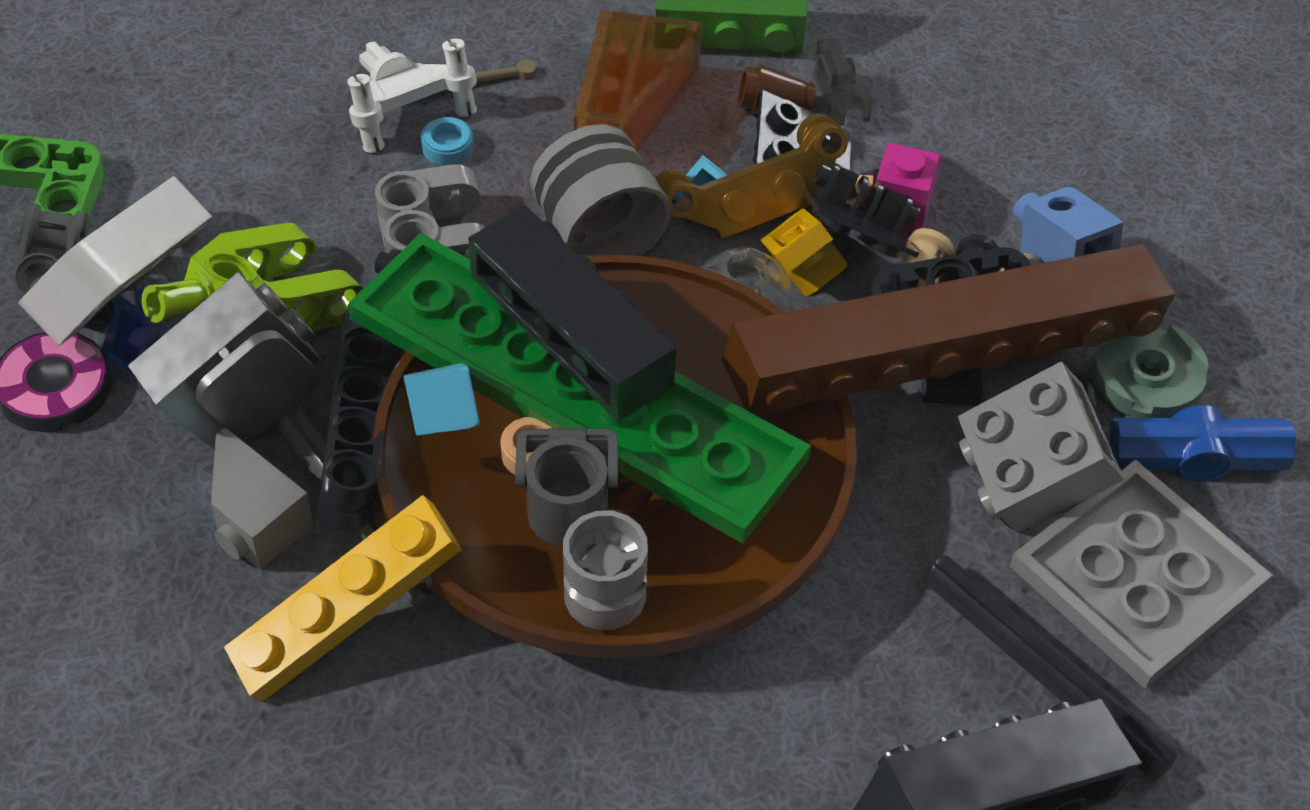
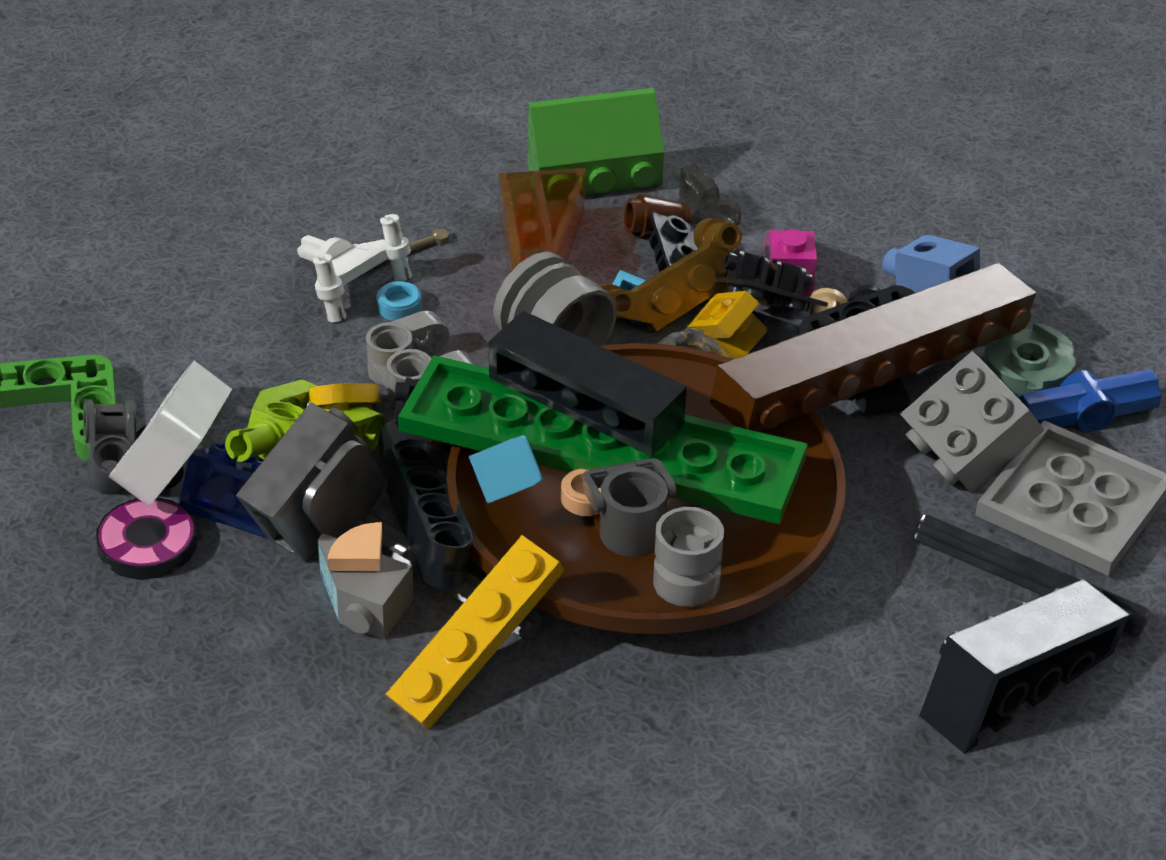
camera: 15 degrees left, 10 degrees down
(249, 460) = (357, 549): none -> light nougat tile
(312, 256) = (345, 395): none -> yellow plate

